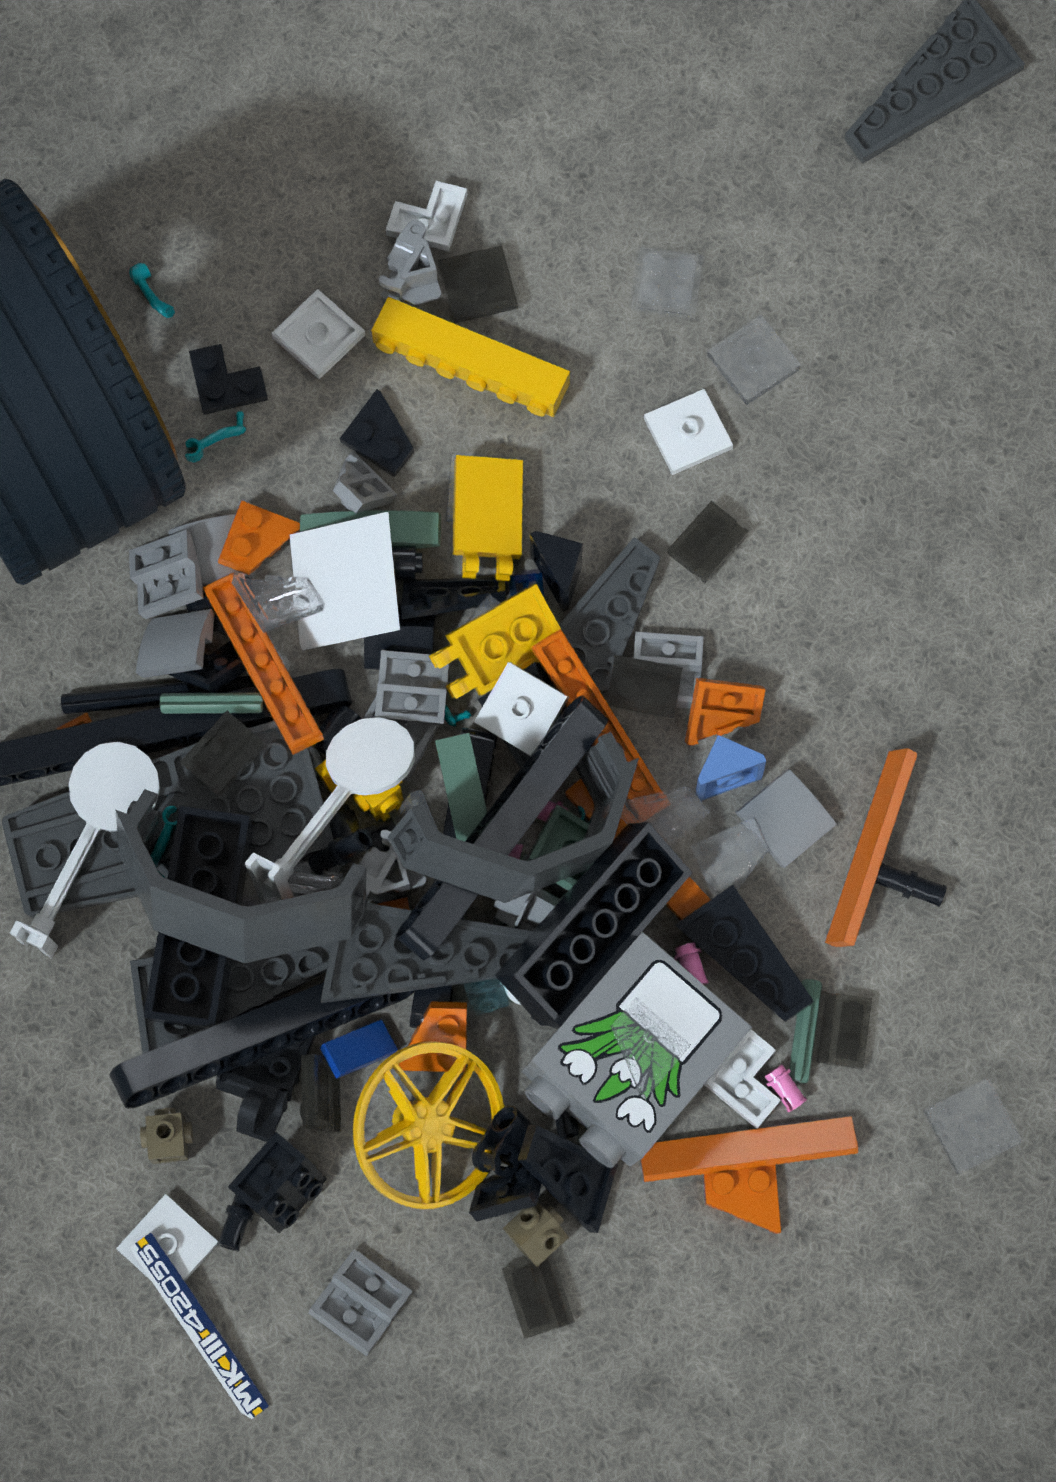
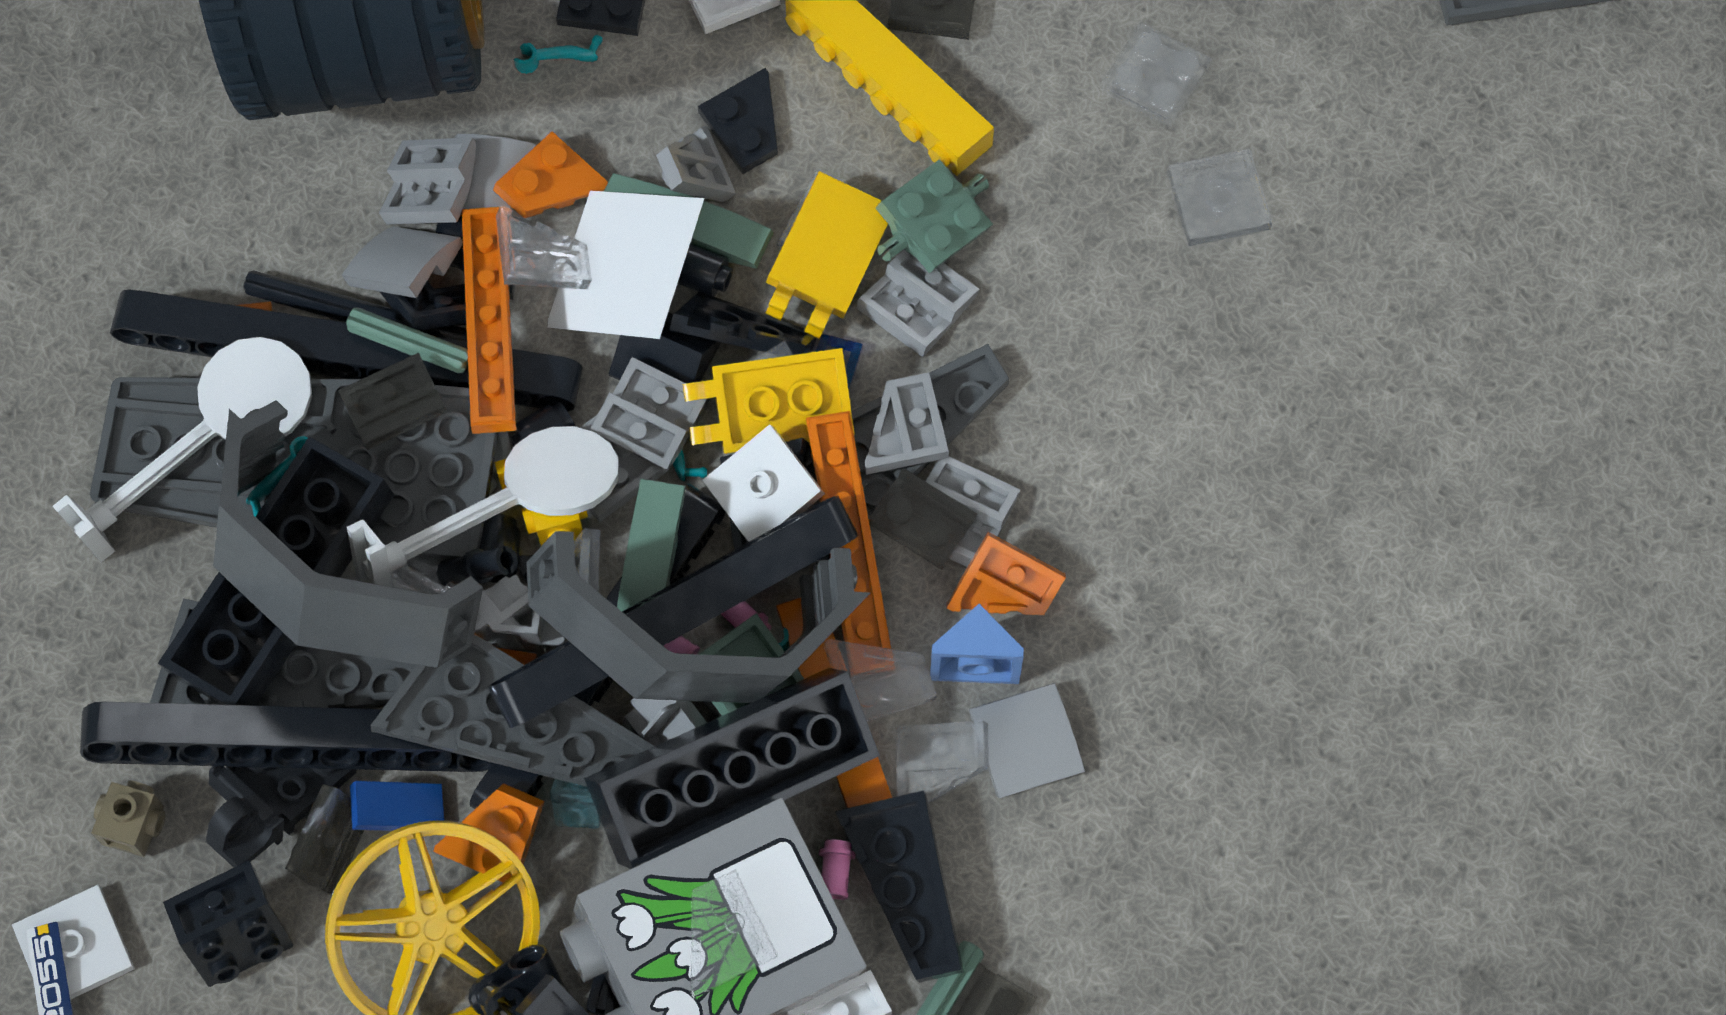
camera: 20 degrees right, 5 degrees down
(233, 1231) = (158, 957): black pin -> none
(553, 456) = (933, 216): none -> sand green plate
(559, 562) = (886, 338): black slope -> none
(569, 515) = (917, 304): none -> light grey slope
(604, 622) = (907, 426): none -> light grey wing
(688, 431) = (1107, 250): white plate -> none
(708, 542) = (1073, 383): clear smoke plate -> none
(871, 848) = (1113, 816): orange tile -> none
(911, 884) = (1142, 878): black pin -> none

